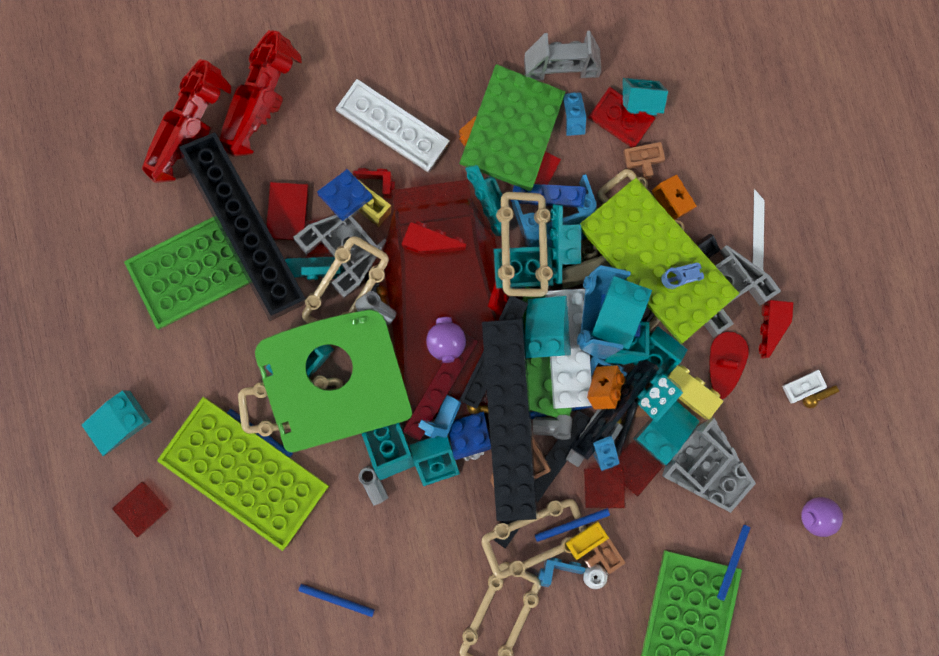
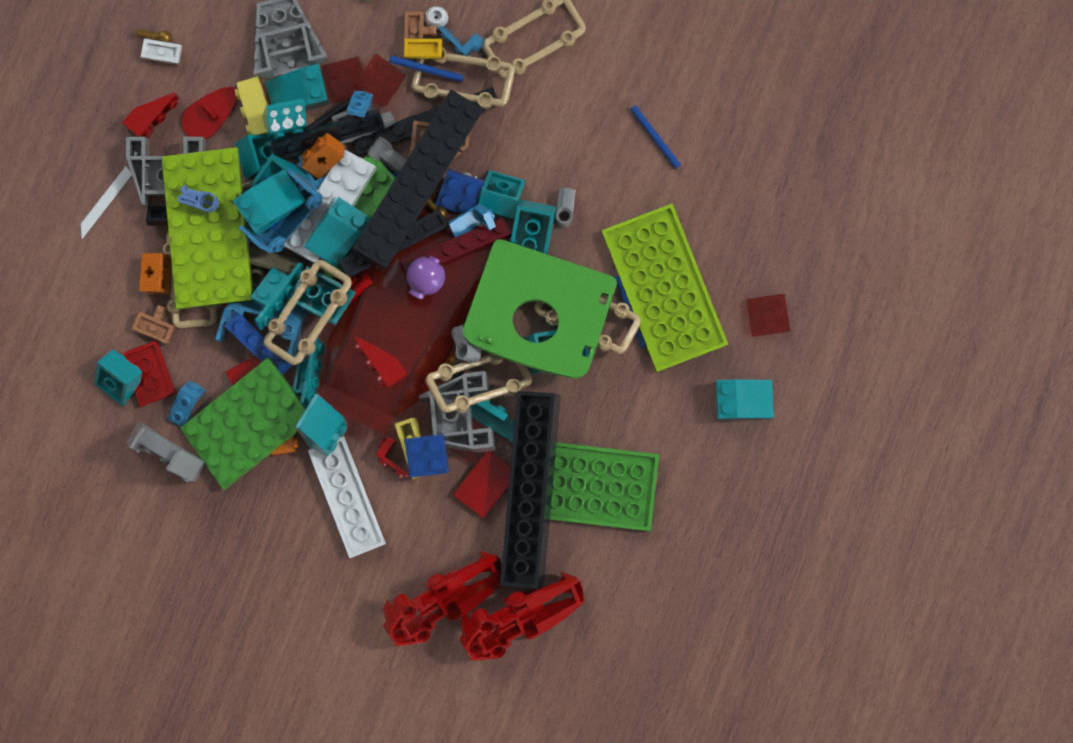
camera: 145 degrees left, 0 degrees up
(448, 161) = (321, 426): none -> teal slope

